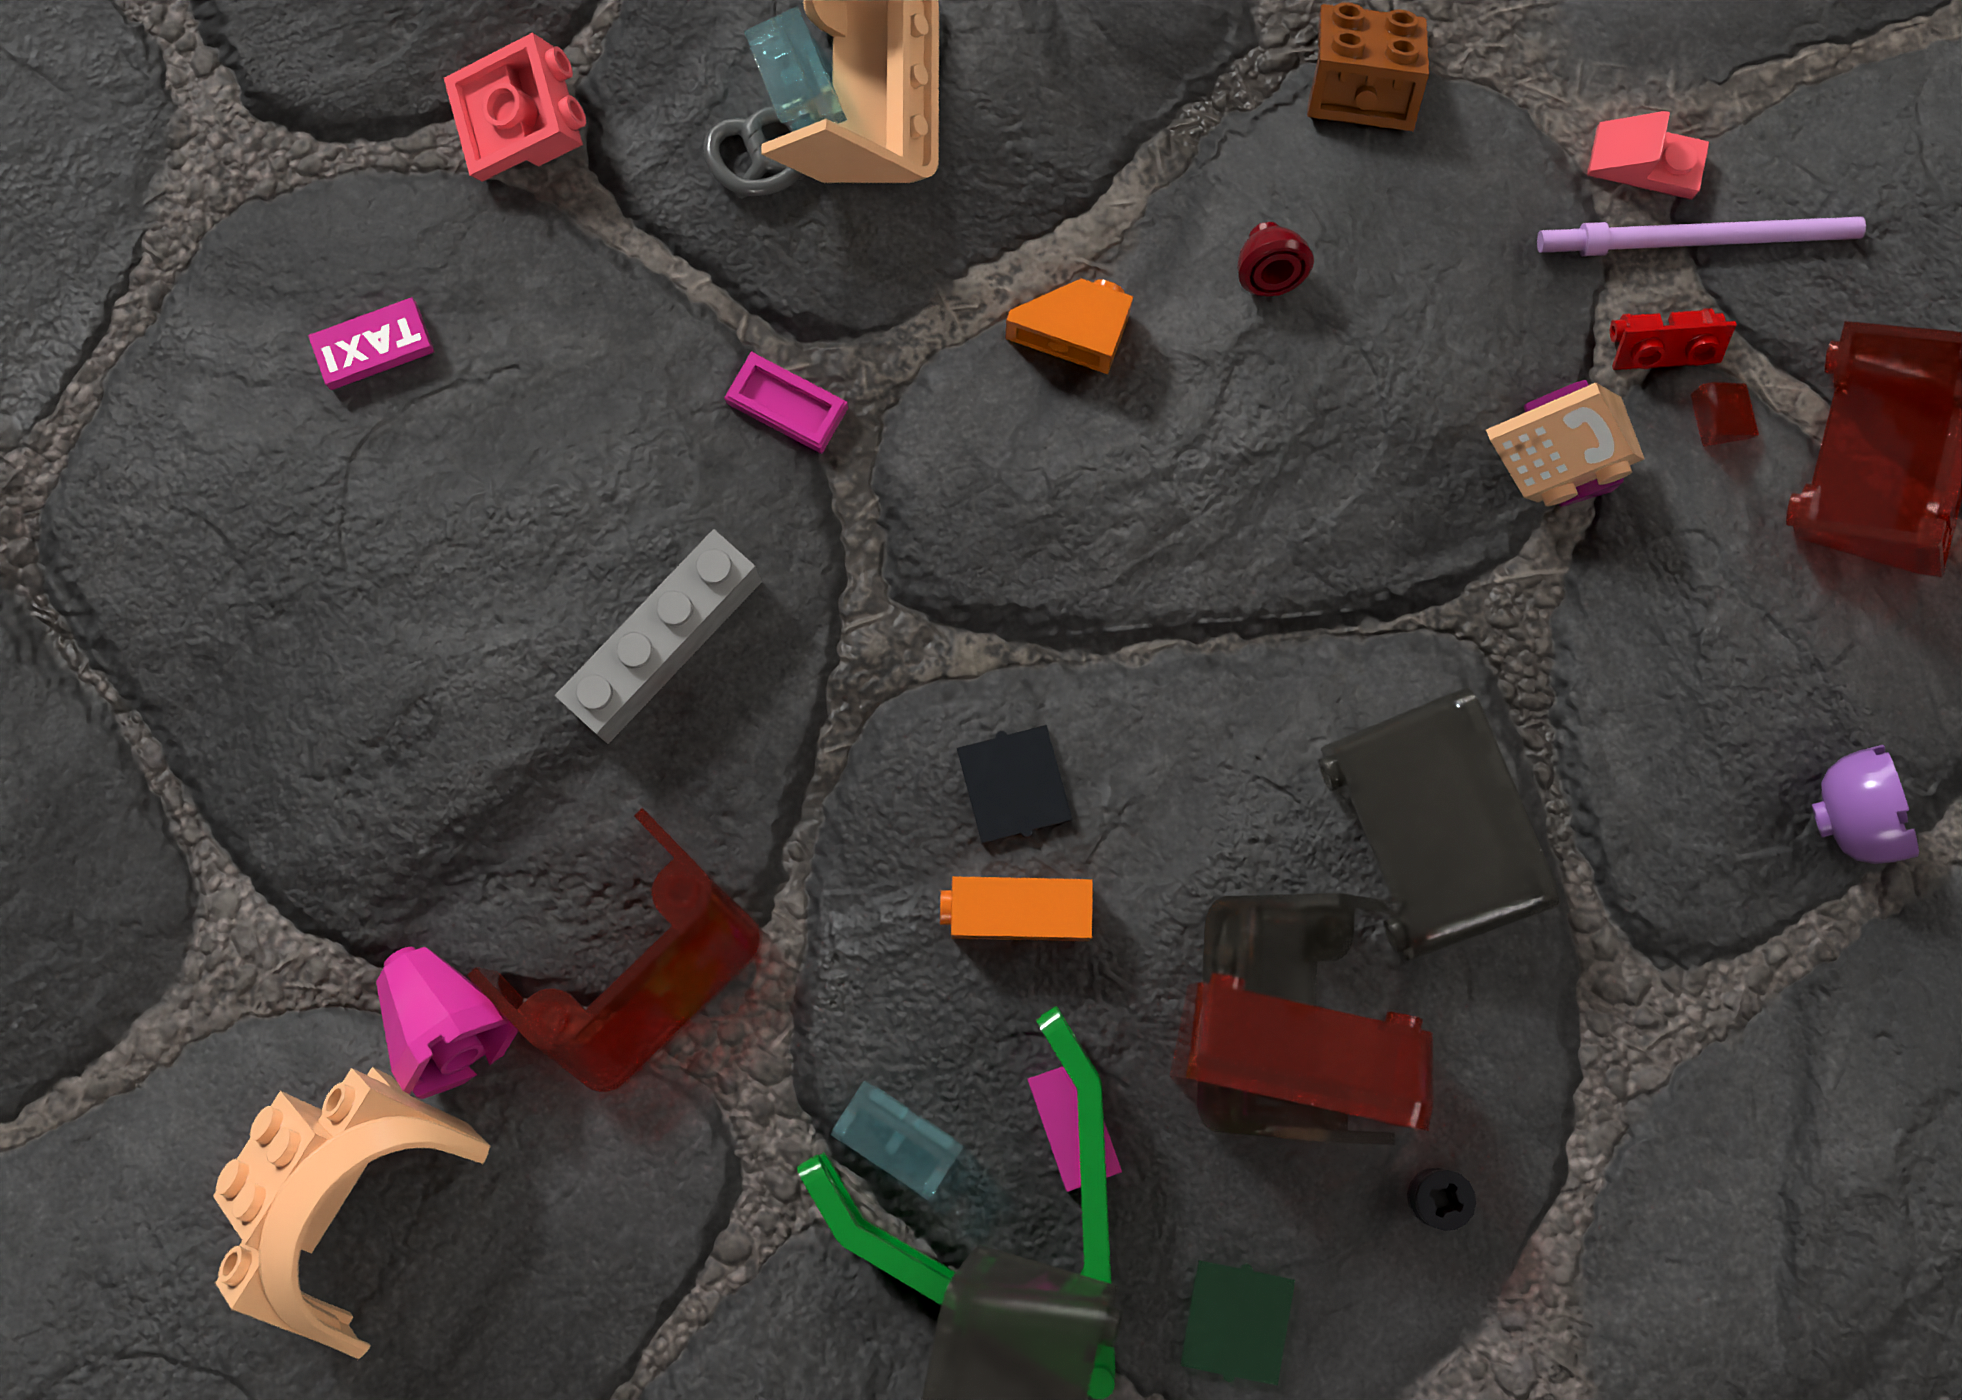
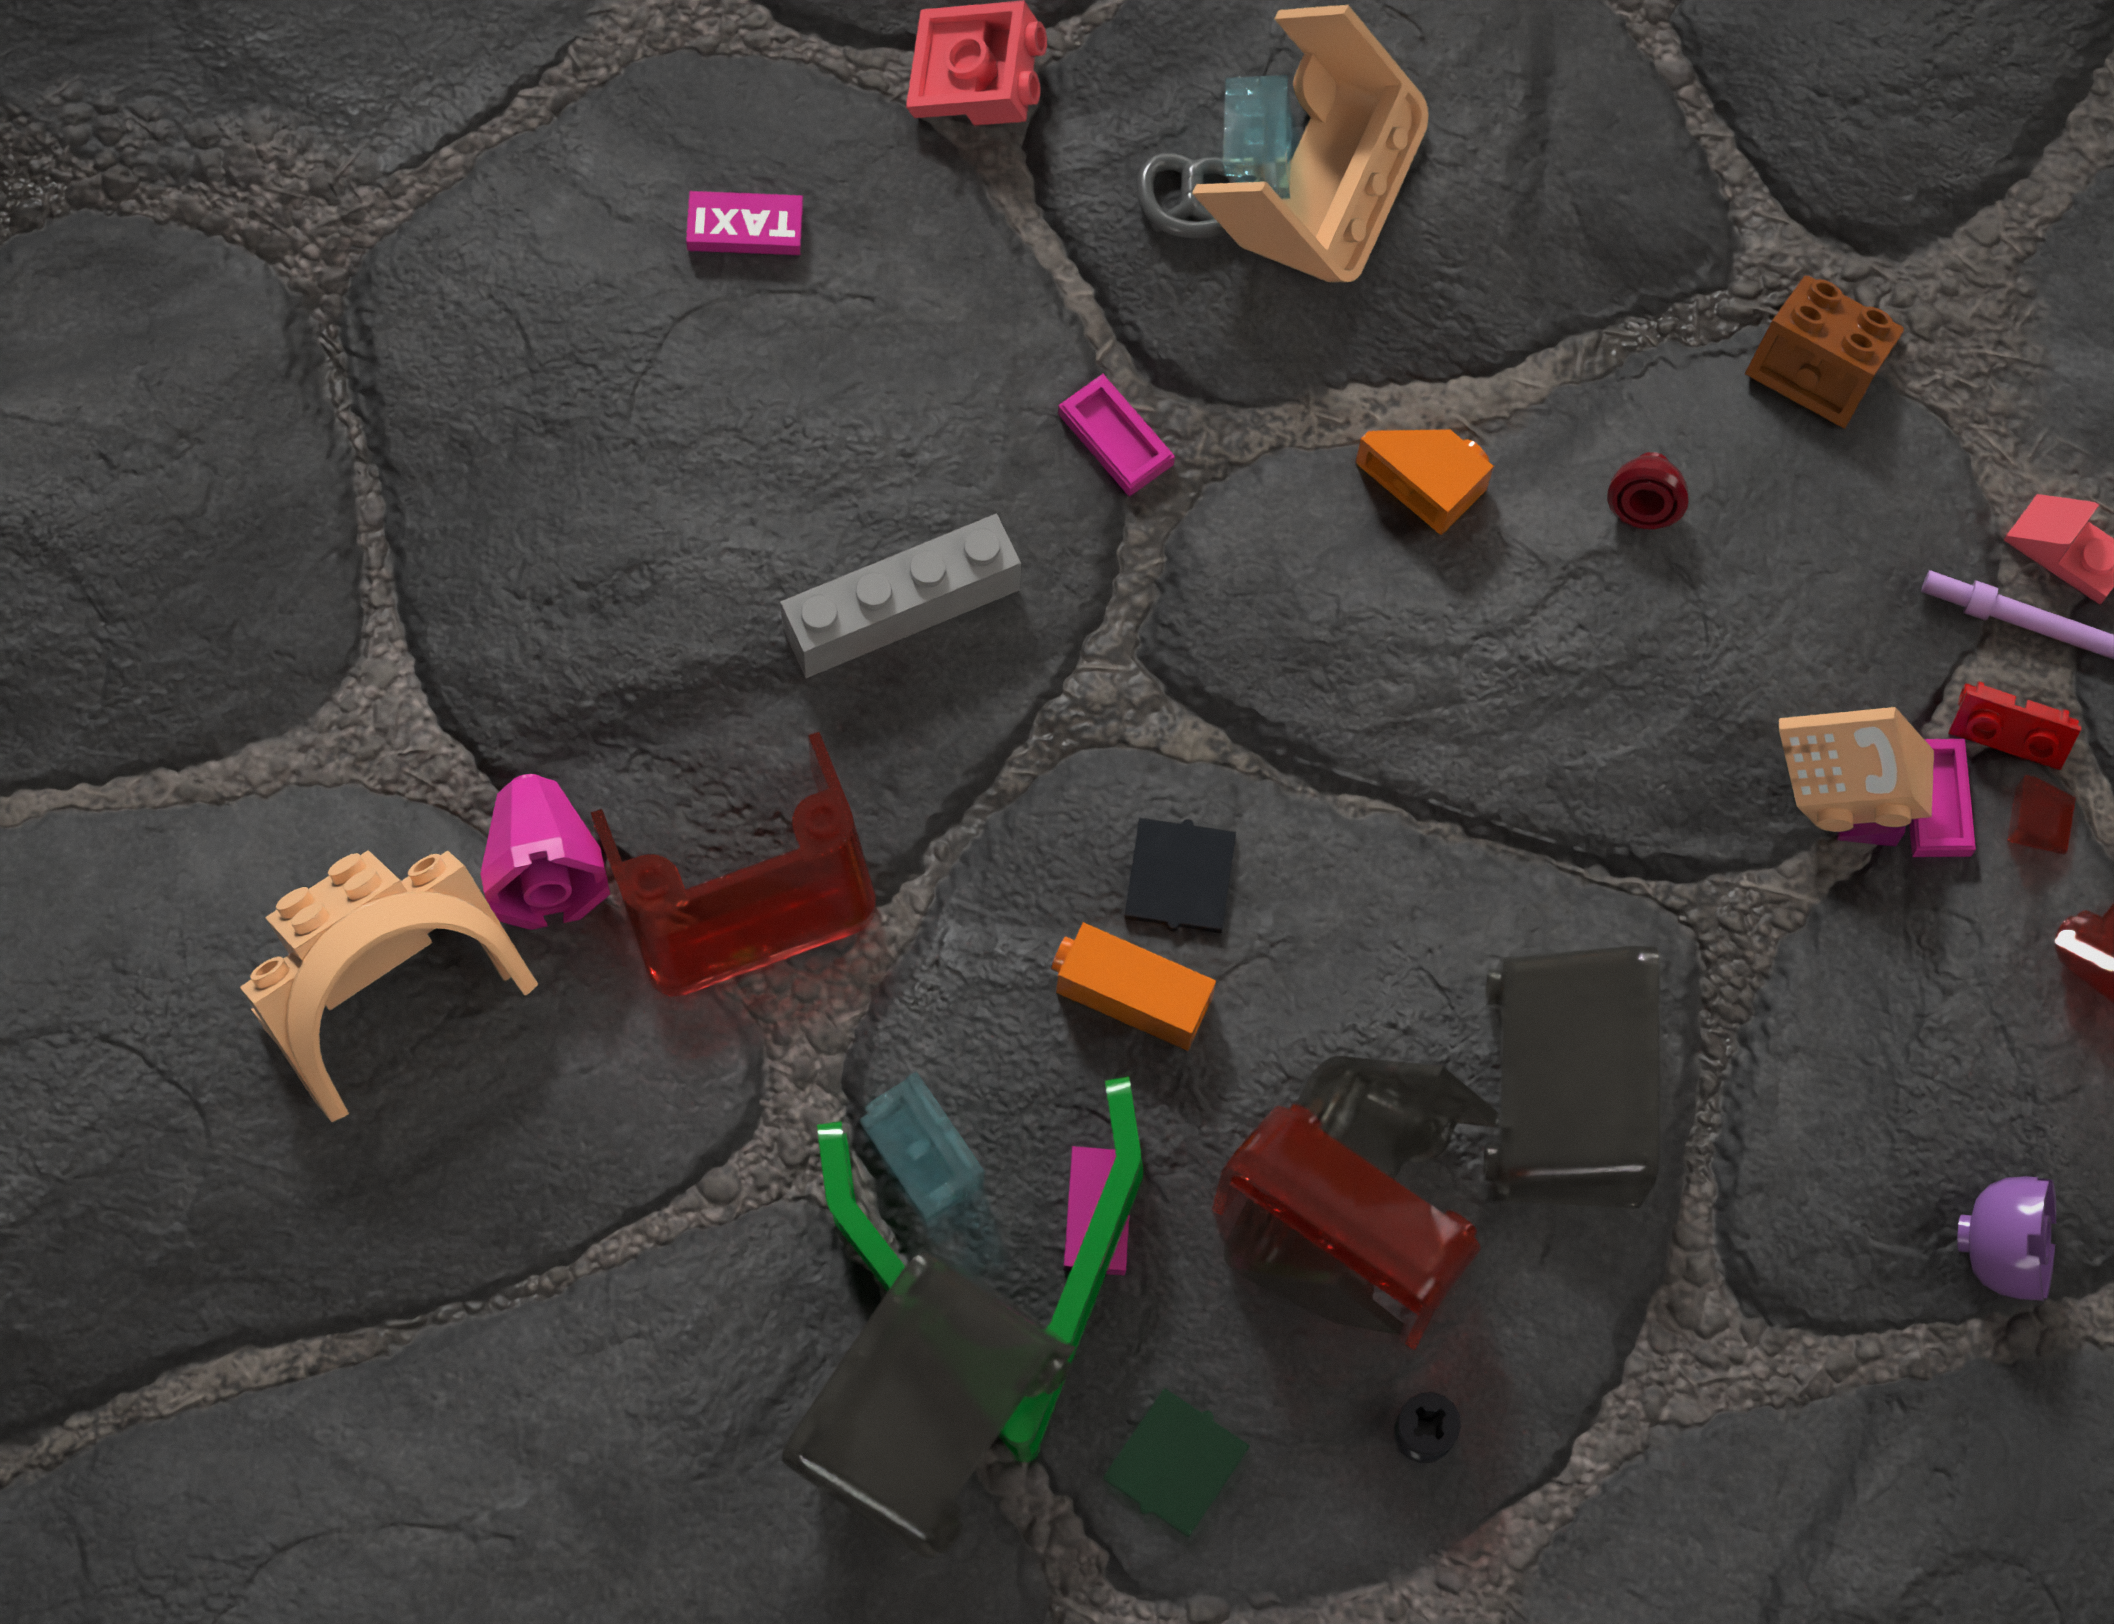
camera: 20 degrees right, 10 degrees down
(1659, 454) = (1951, 825): none -> dark pink tile

